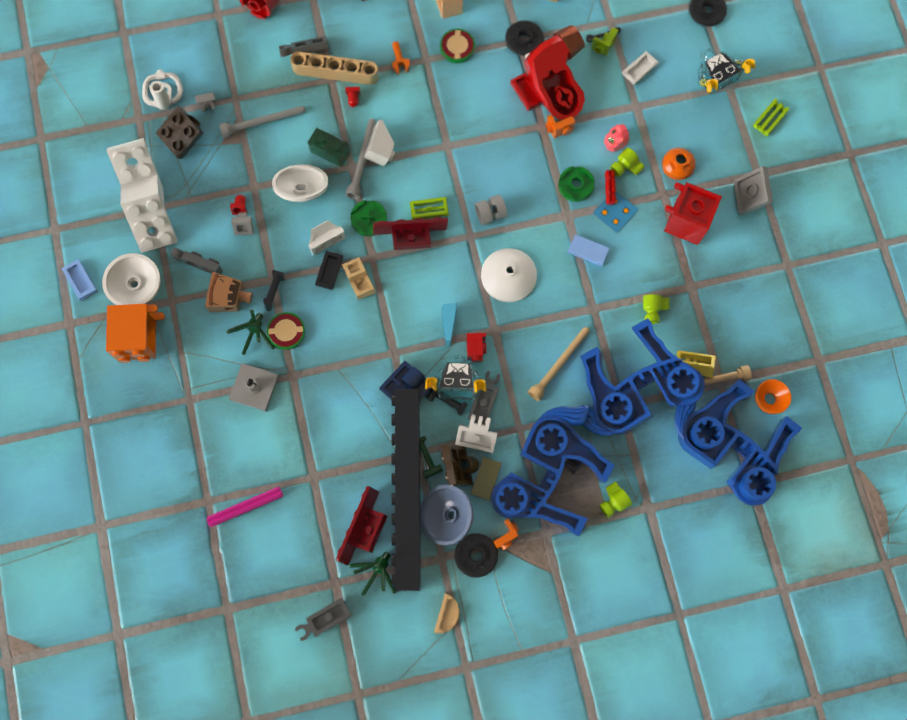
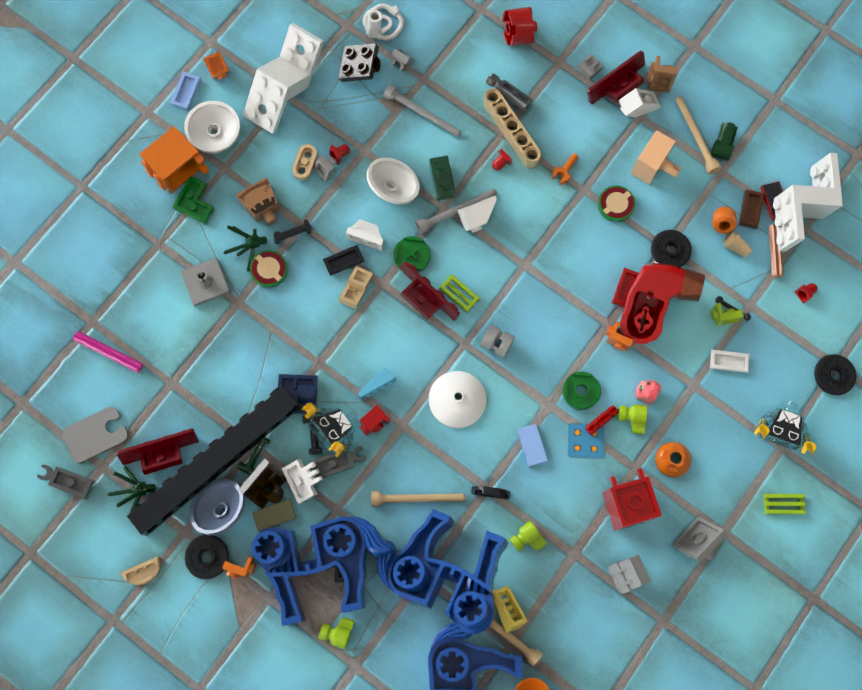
camera: 50 degrees right, 0 degrees up
(81, 239) = (216, 65): none -> orange bracket
(176, 349) = (189, 201): none -> green tile
(195, 259) = (268, 157): dark grey plate -> none
(224, 237) = (304, 163): none -> tan plate
(303, 574) = (91, 437): none -> light grey piece
(598, 307) = (490, 492): none -> black tile
(740, 257) = (629, 574): none -> light grey piece

